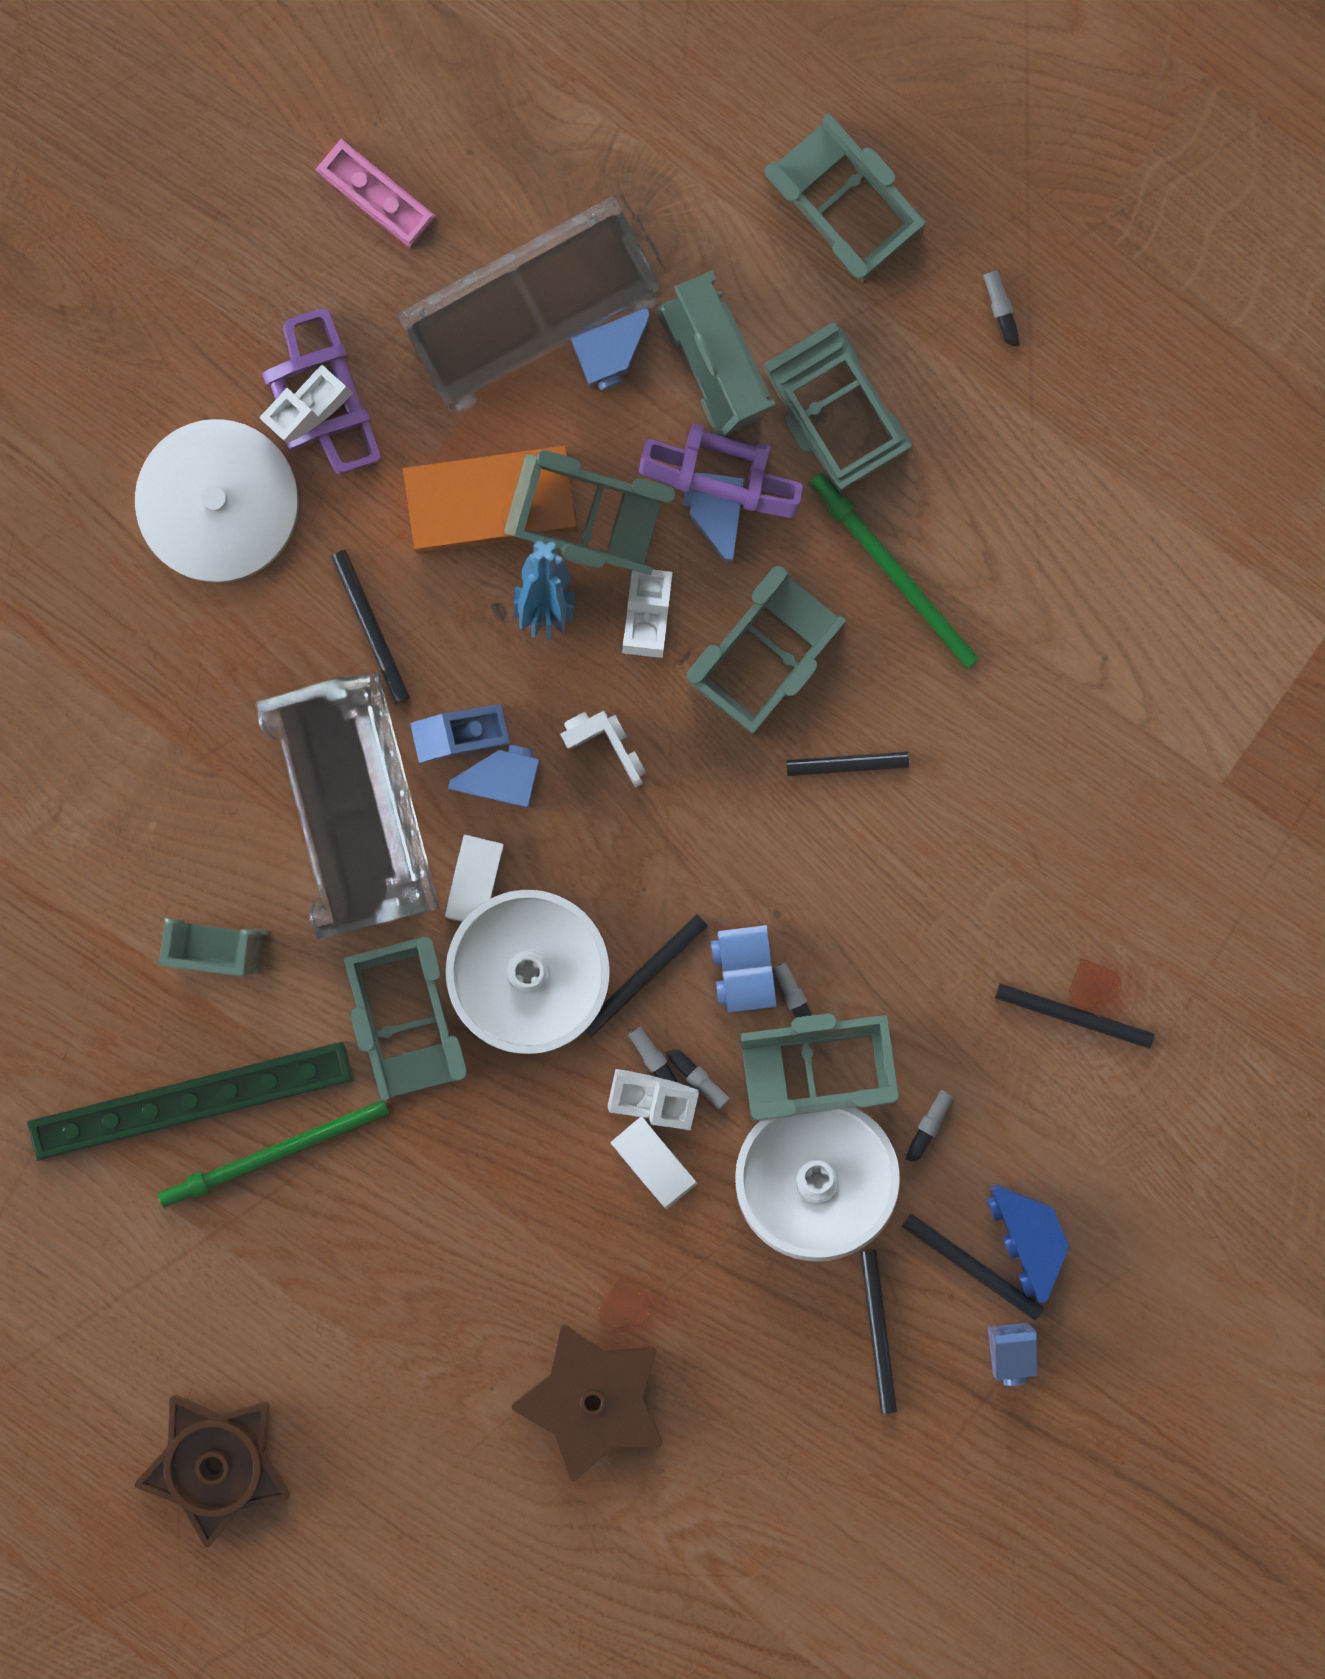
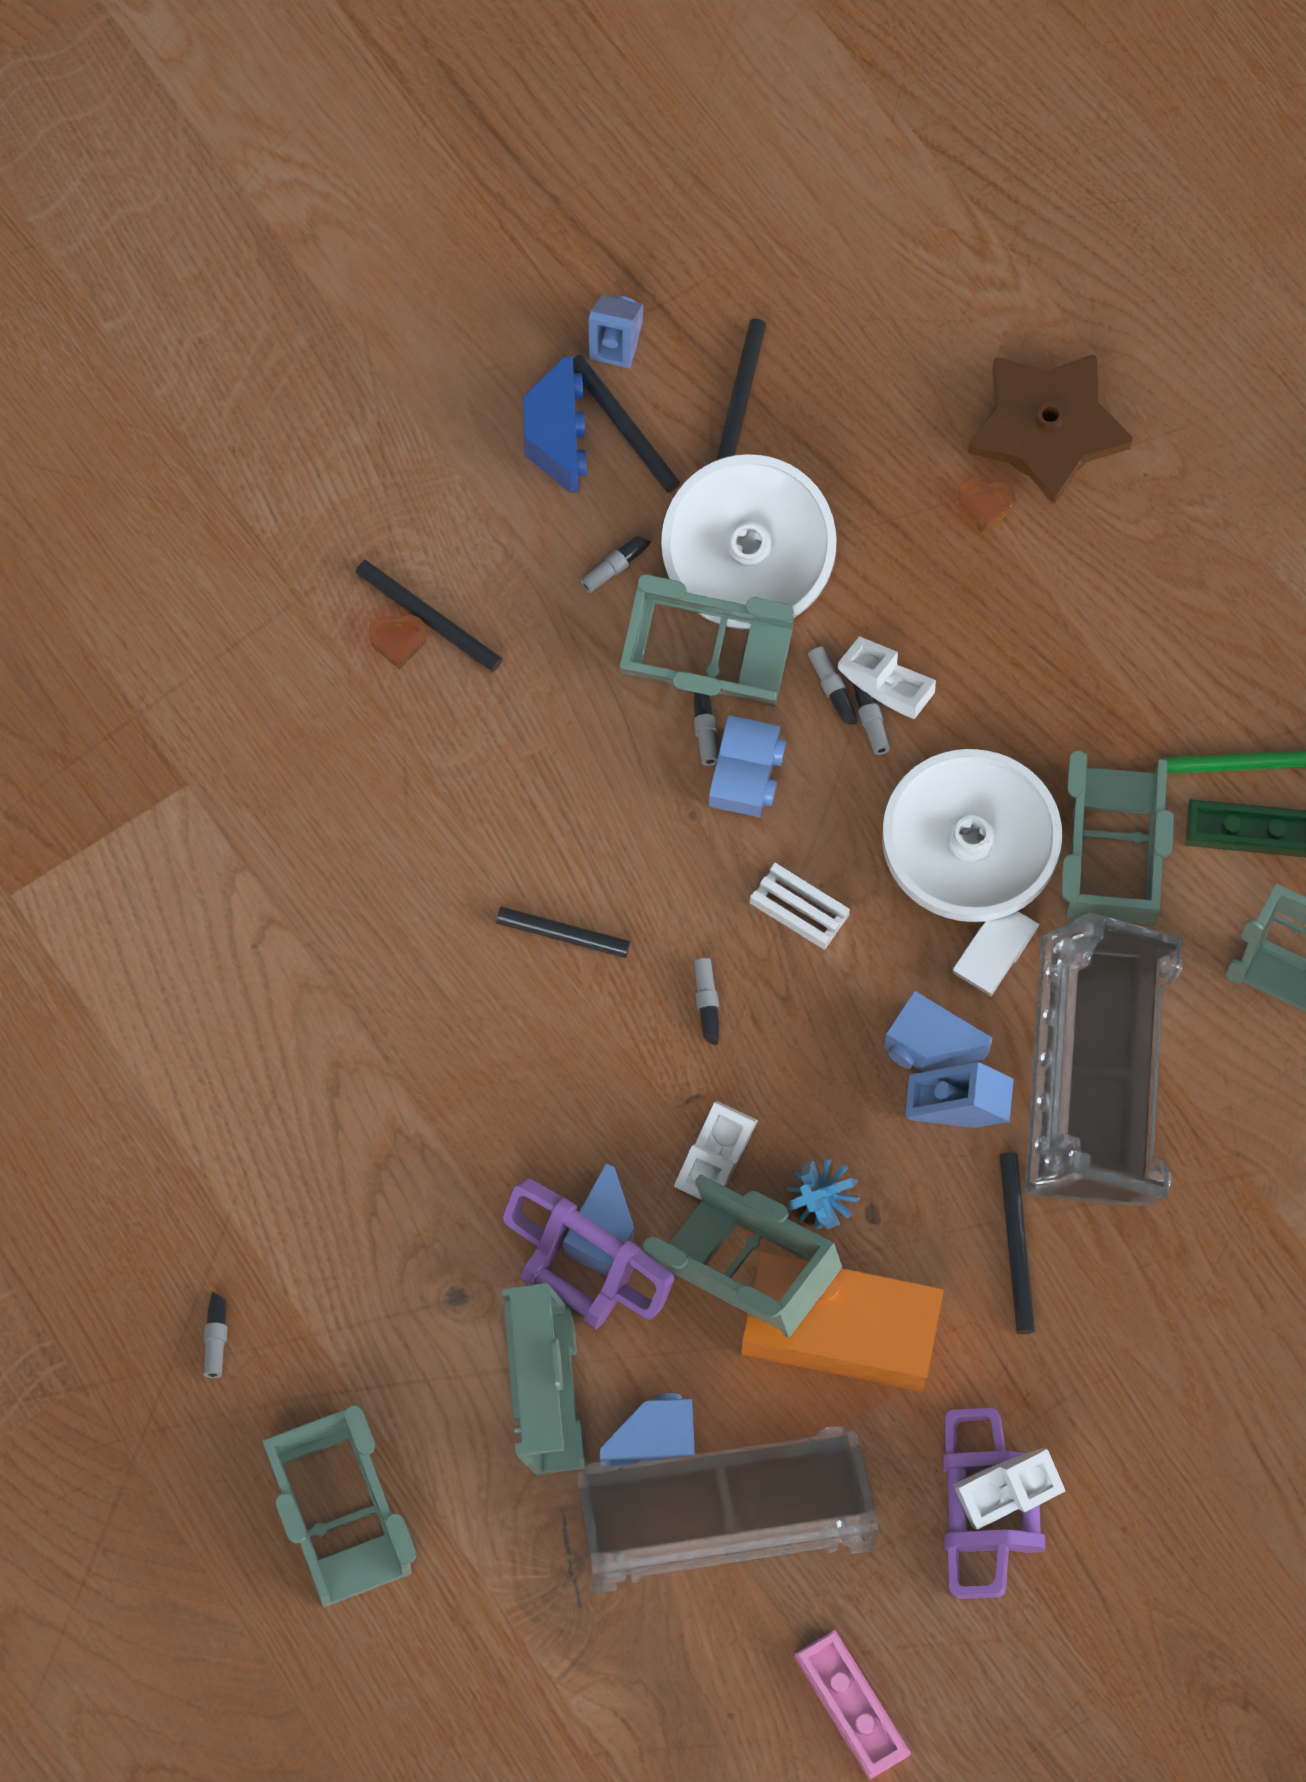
camera: 160 degrees left, 20 degrees down
(217, 501) = (1140, 1432): white dish -> none
(583, 729) = (815, 1045): white bracket -> none
(622, 852) = (780, 874): none -> white tile
(646, 973) = (836, 806): black bar -> none
(654, 1162) = (907, 619): white slope -> none
(703, 746) = (707, 1000): none -> light grey piece
(796, 610) = (551, 1094): sand green piece -> none
(806, 363) = (445, 1338): sand green piece -> none
(843, 510) = (468, 1183): green bar -> none

